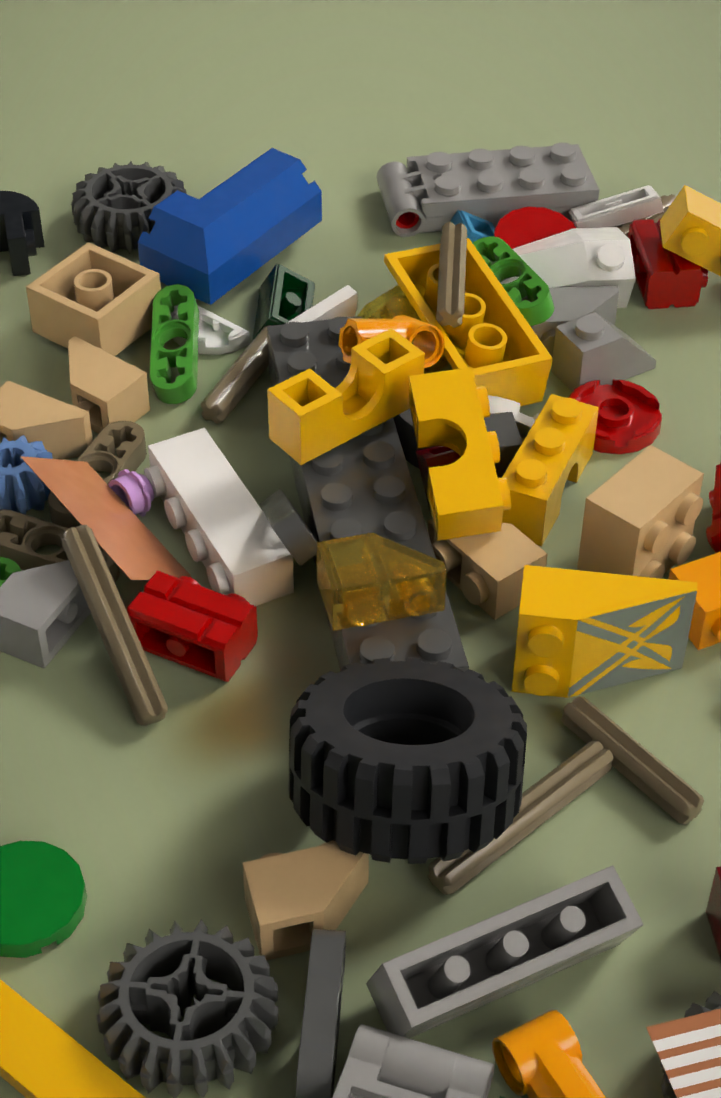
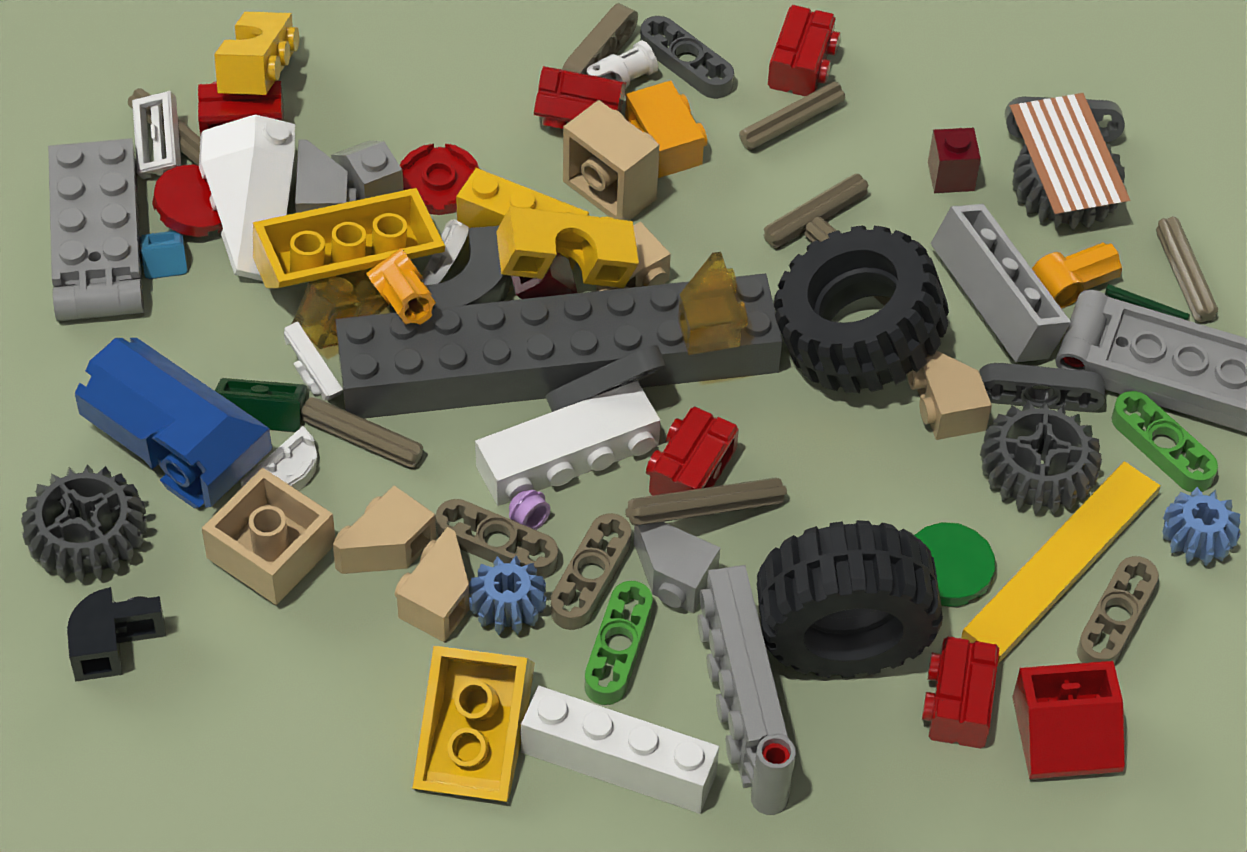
camera: 90 degrees left, 10 degrees up
(111, 520) = (584, 510): nougat sticker -> none
(183, 358) = (341, 466): bright green beam -> none
(314, 417) = (519, 331): yellow arch -> none
(452, 275) = (319, 233): dark tan axle -> none
(528, 284) = (298, 193): bright green beam -> none
(597, 630) = (726, 207): yellow slope -> none

